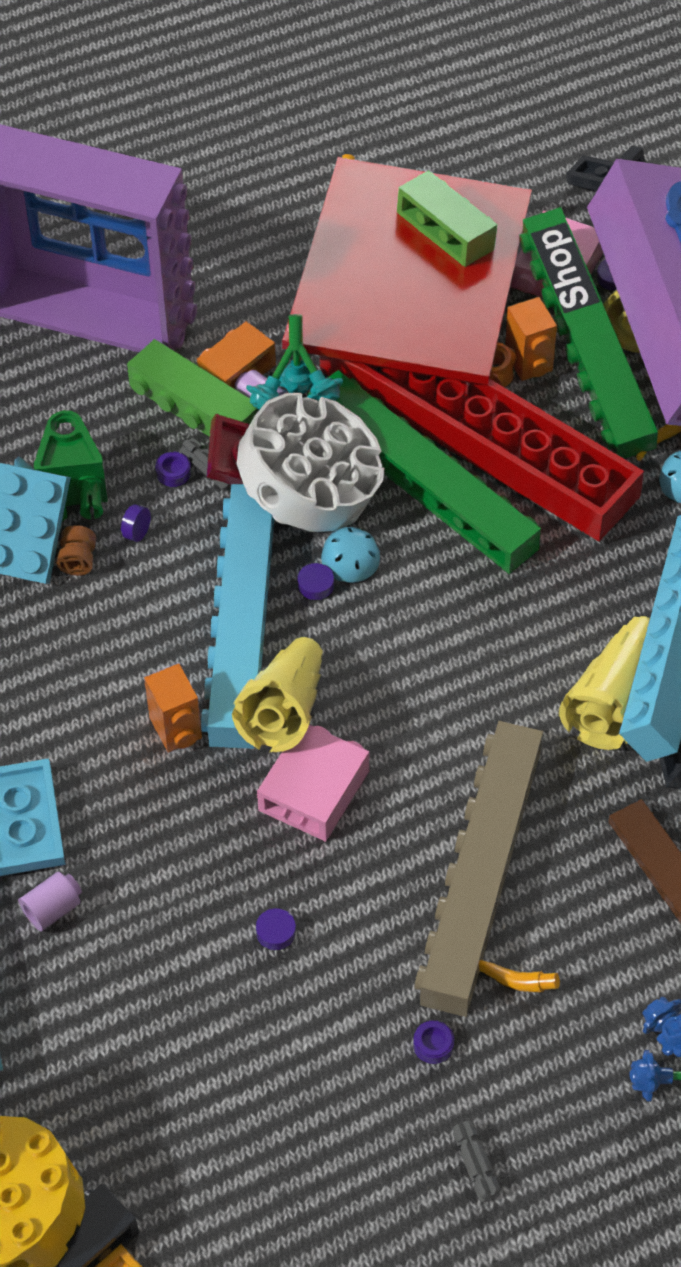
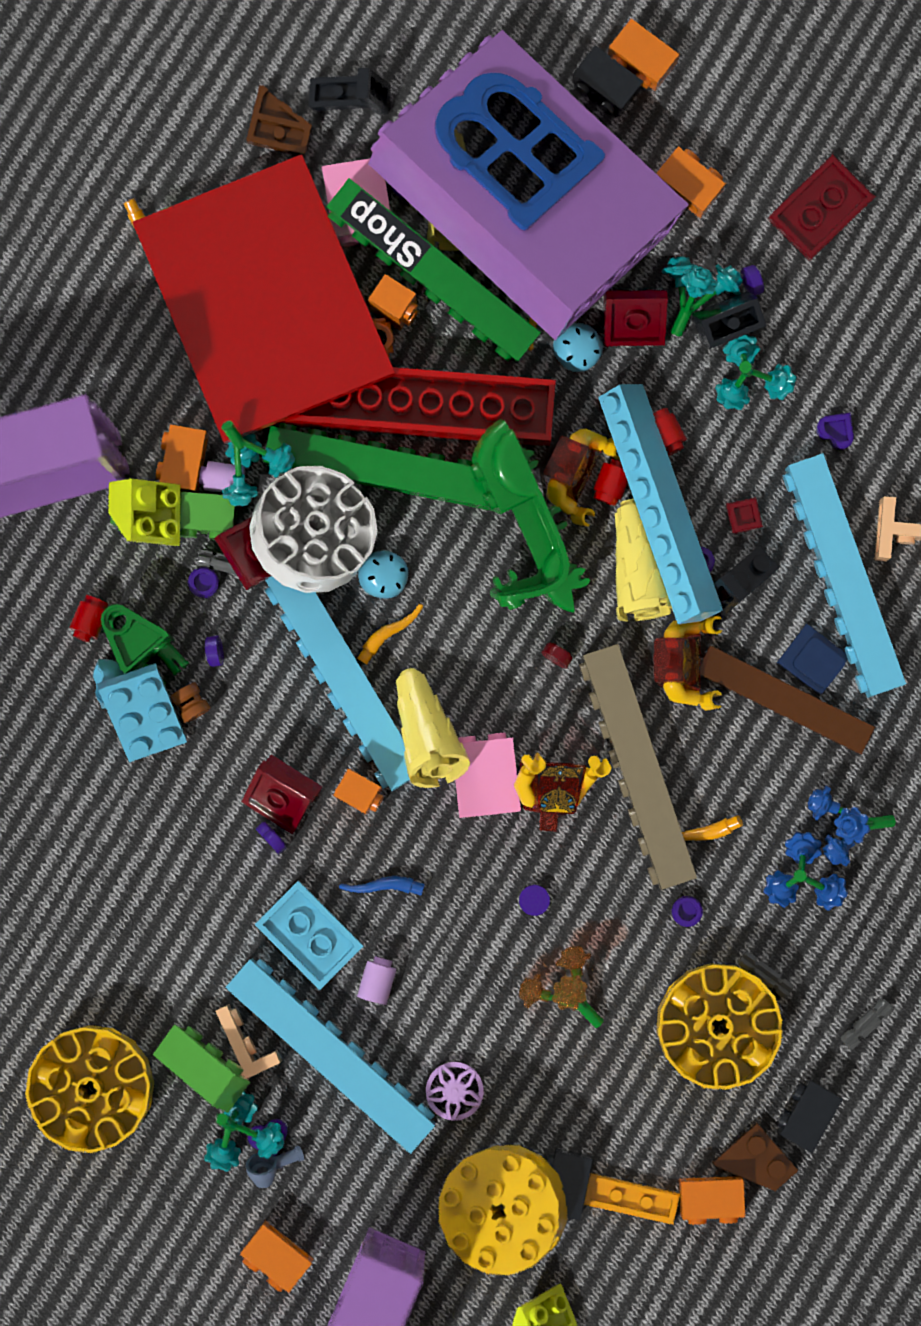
camera: 30 degrees left, 30 degrees up
(32, 432) = (87, 619): none -> red brick
(43, 1064) = (454, 1091): none -> lavender wheel
(55, 711) = (271, 837): none -> dark purple tile
(96, 671) = (281, 793): none -> dark red bracket
(146, 826) = (392, 882): none -> blue animal
(169, 360) = (146, 510): none -> neon yellow slope
(241, 1014) = (567, 992): none -> clear orange plant
(303, 603) = (377, 638): none -> light orange animal
(315, 581) = (374, 612): dark purple tile -> none
(376, 820) = (555, 786): none -> torso
(423, 1165) = (750, 1021): none -> yellow brick
(447, 218) = (265, 239): bright green brick -> none
(471, 715) = (557, 655): none -> dark red tile
(527, 170) = (277, 126): none -> reddish brown wing
(532, 521) = (510, 484): none -> green piece
(597, 785) = (678, 663): none -> torso
(600, 1052) = (783, 887): none -> blue plant
(607, 559) = (570, 470): none -> torso
(636, 600) = (610, 483): none -> red brick

